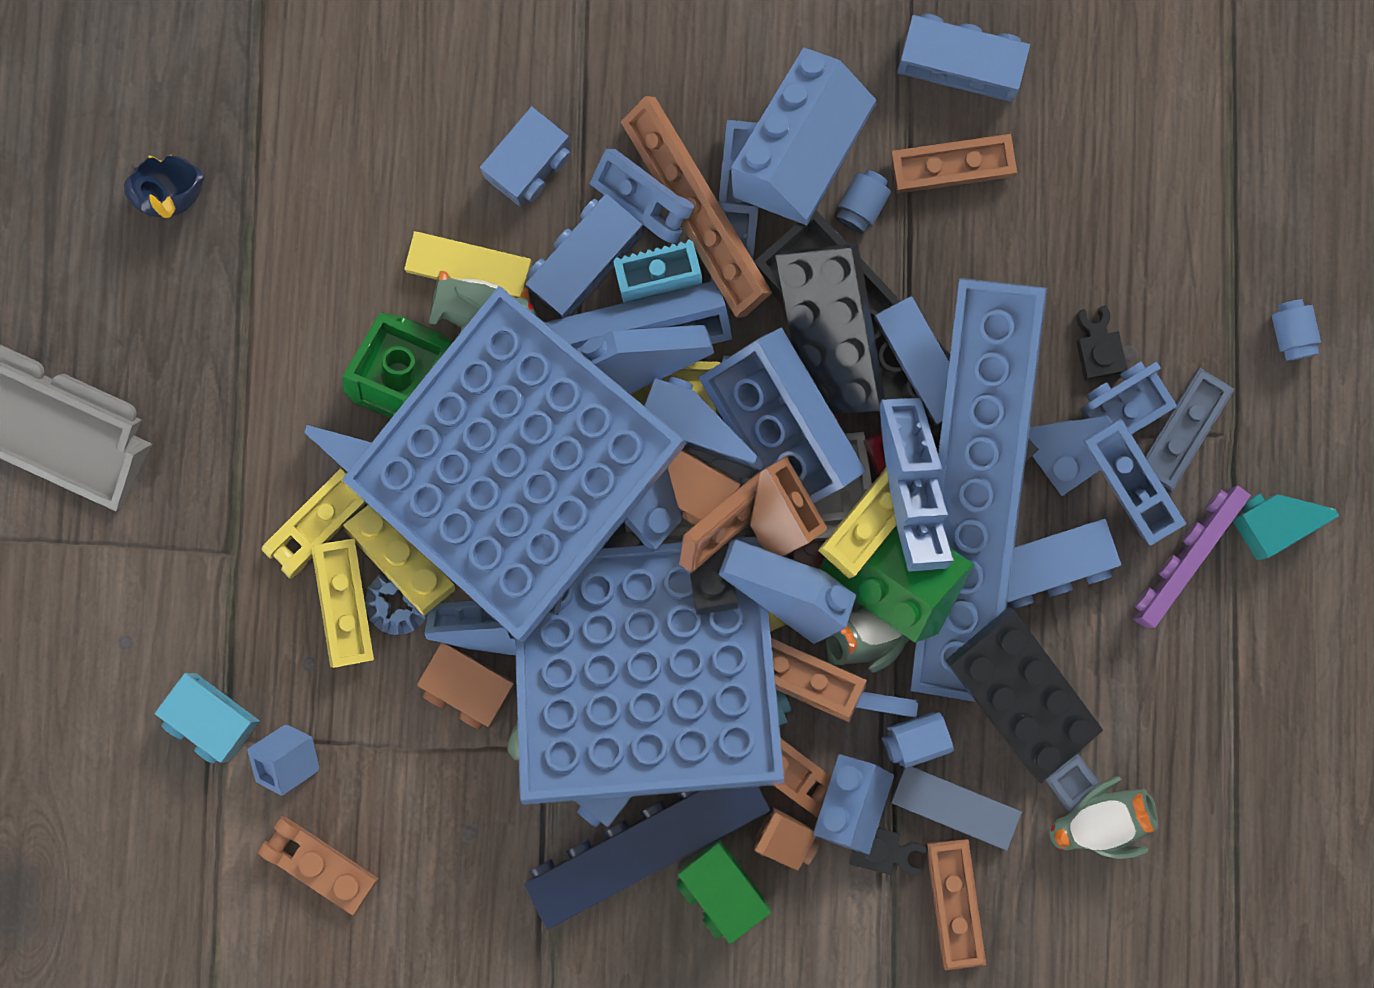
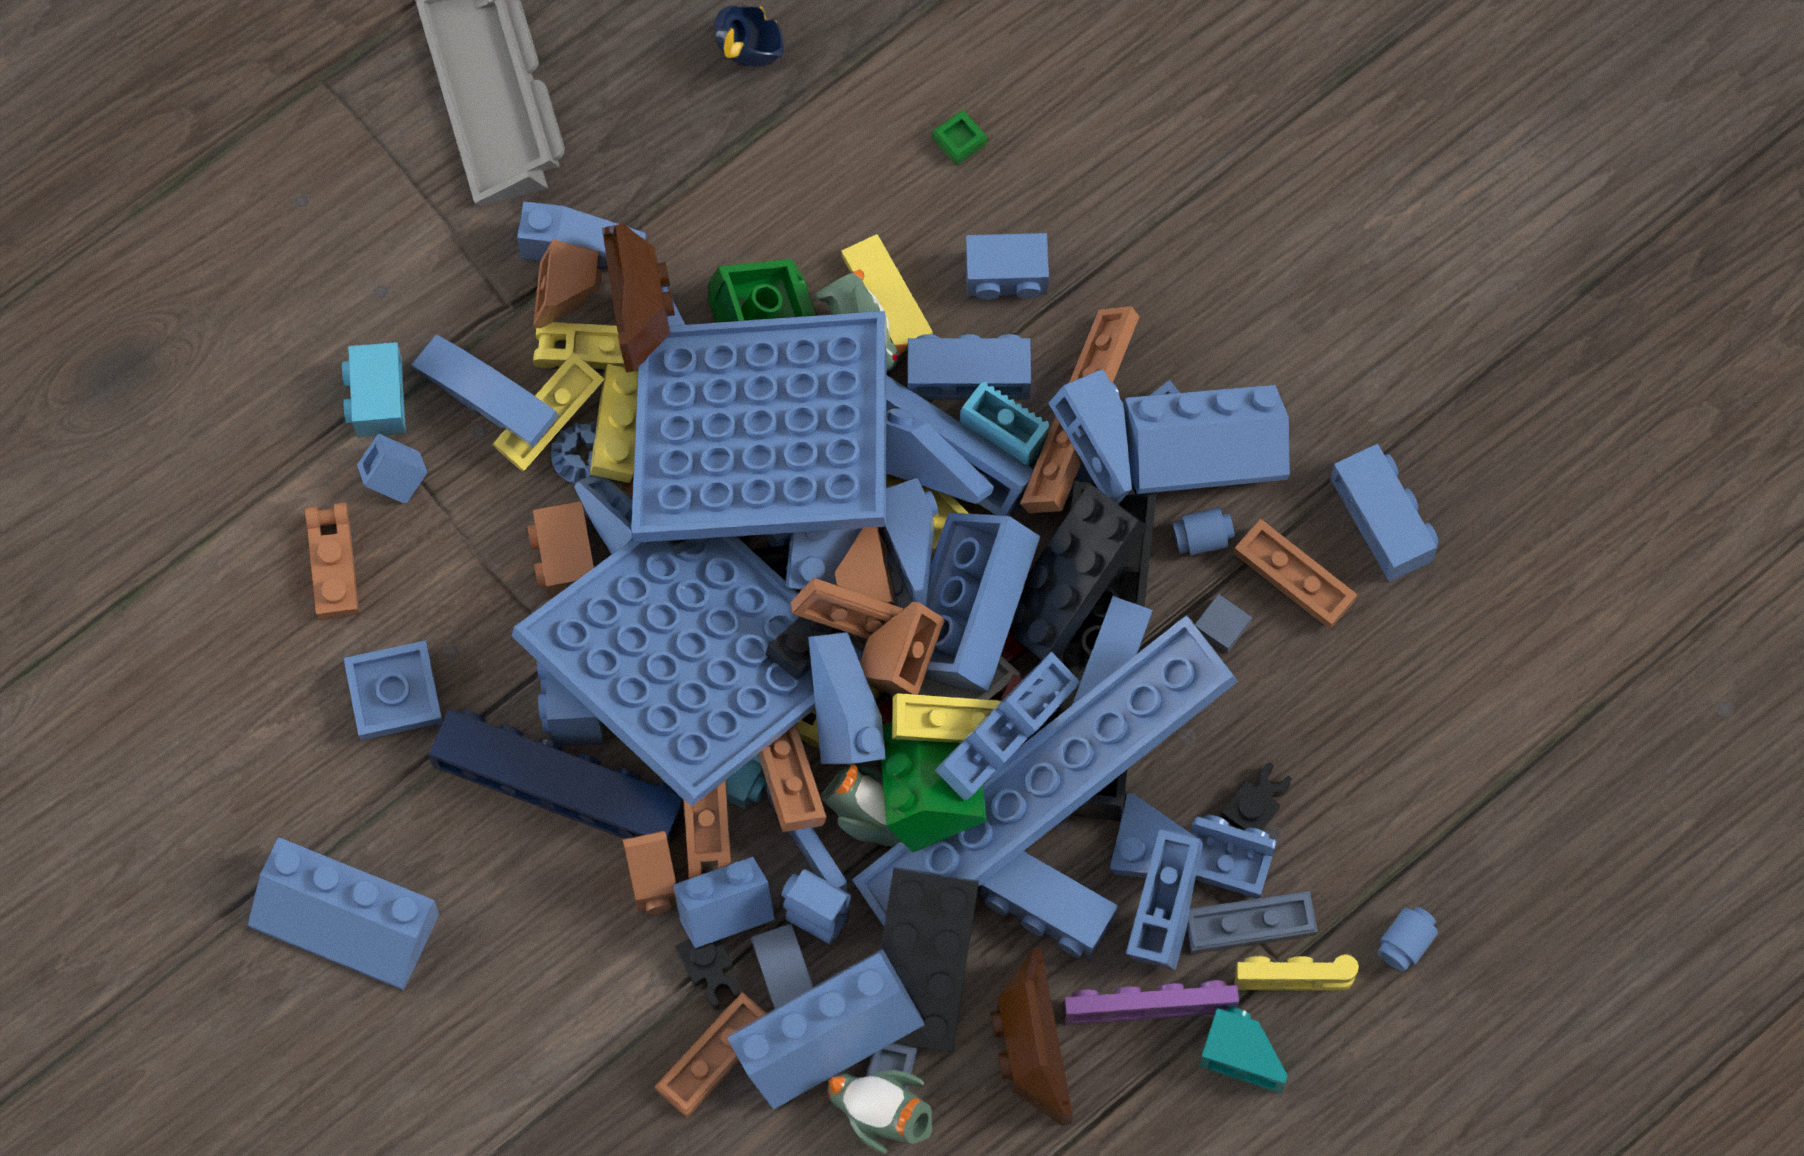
camera: 45 degrees right, 15 degrees down
(217, 458) = (546, 222): none -> medium blue slope
(246, 500) = (564, 281): none -> nougat slope
(282, 636) = (485, 390): none -> medium blue slope
(315, 461) = (637, 294): none -> reddish brown wedge
(388, 101) = (959, 137): none -> green tile
(466, 908) = (393, 690): none -> medium blue plate
(641, 195) = (1050, 361): medium blue plate -> none
(723, 891) = (571, 856): green brick -> none
(735, 210) = (1096, 427): none -> medium blue slope
(943, 249) = (1223, 623): none -> sand blue tile
(1014, 814) = (826, 1029): none -> medium blue slope
(1143, 665) = (1031, 1041): none -> reddish brown wedge
(1256, 432) = (1296, 974): none -> light yellow plate

